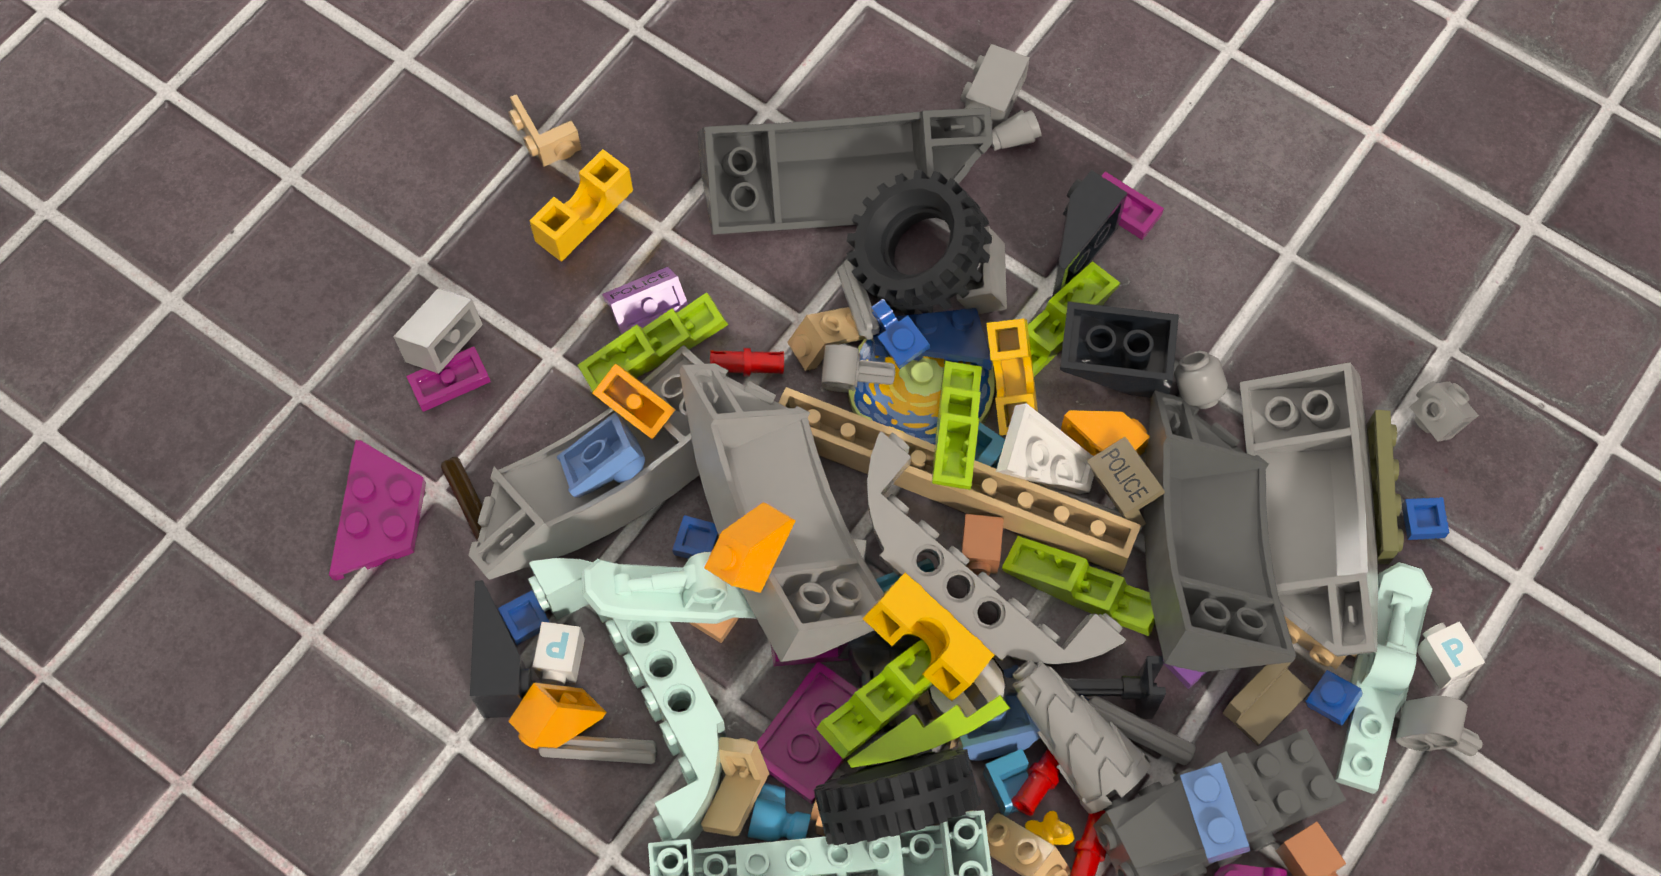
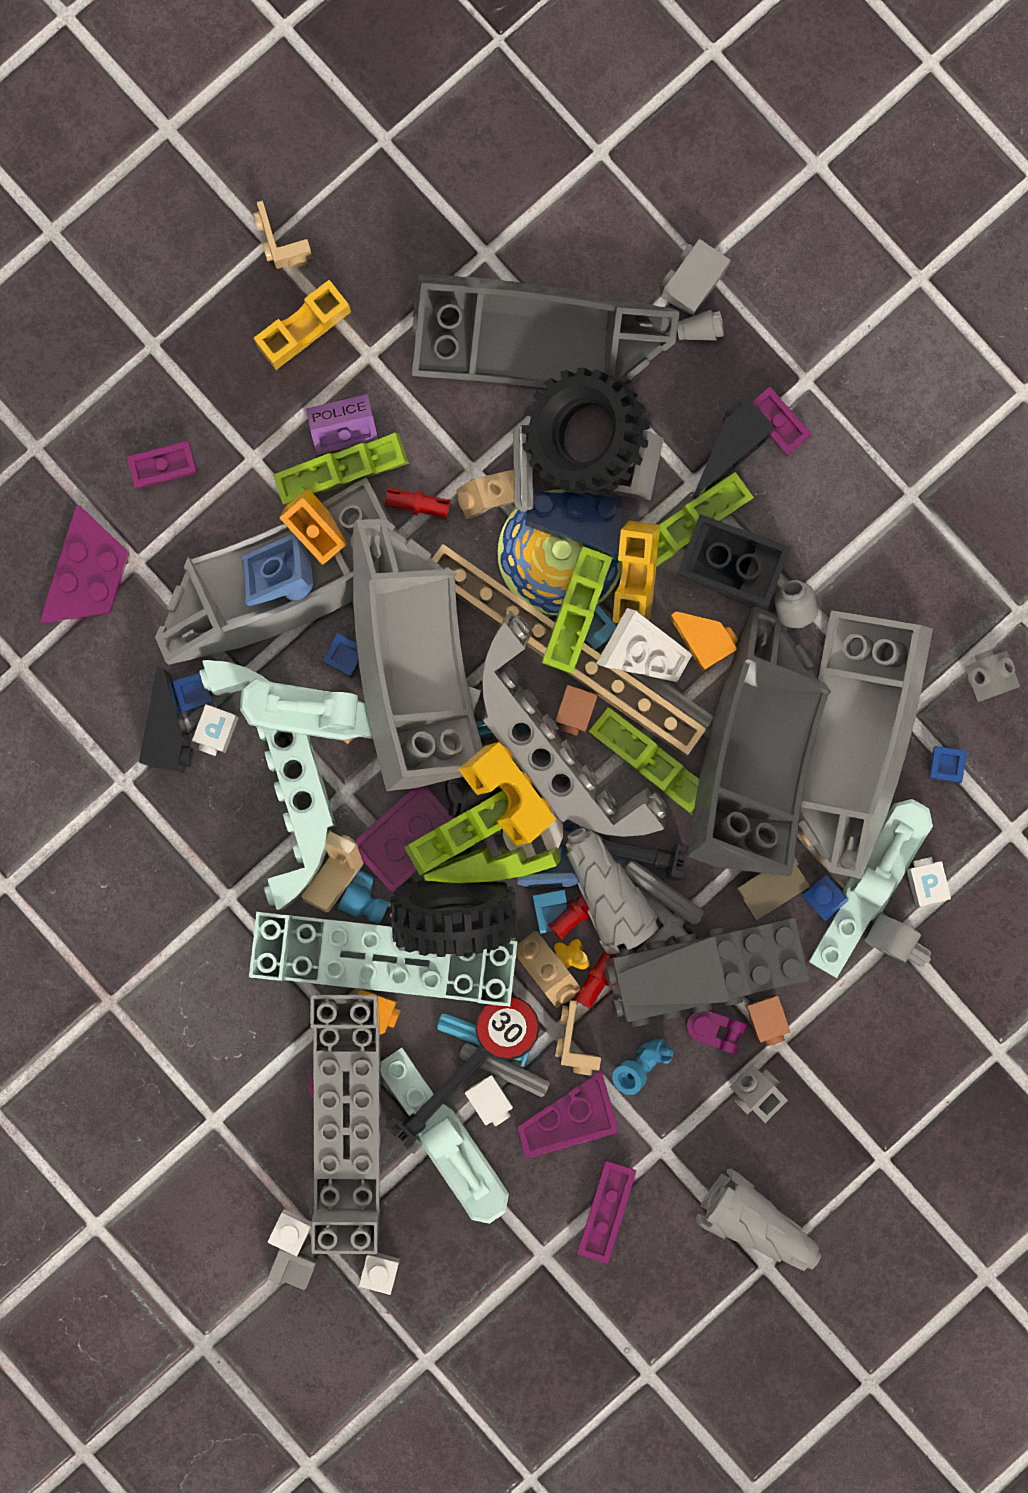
camera: 10 degrees right, 20 degrees up
(438, 330) = (159, 421): light grey brick -> none
(463, 492) = (160, 573): dark brown axle -> none
(554, 715) = (204, 783): light orange slope -> none
(604, 750) = (233, 813): light grey axle -> none
(750, 547) = (378, 700): light orange slope -> none
(844, 369) = (497, 533): light grey beam -> none
(901, 338) = (549, 521): blue plate -> none
(1125, 479) = (705, 686): dark tan panel -> none
(1215, 813) = (690, 985): medium blue brick -> none
(1385, 471) = (925, 717): olive plate -> none

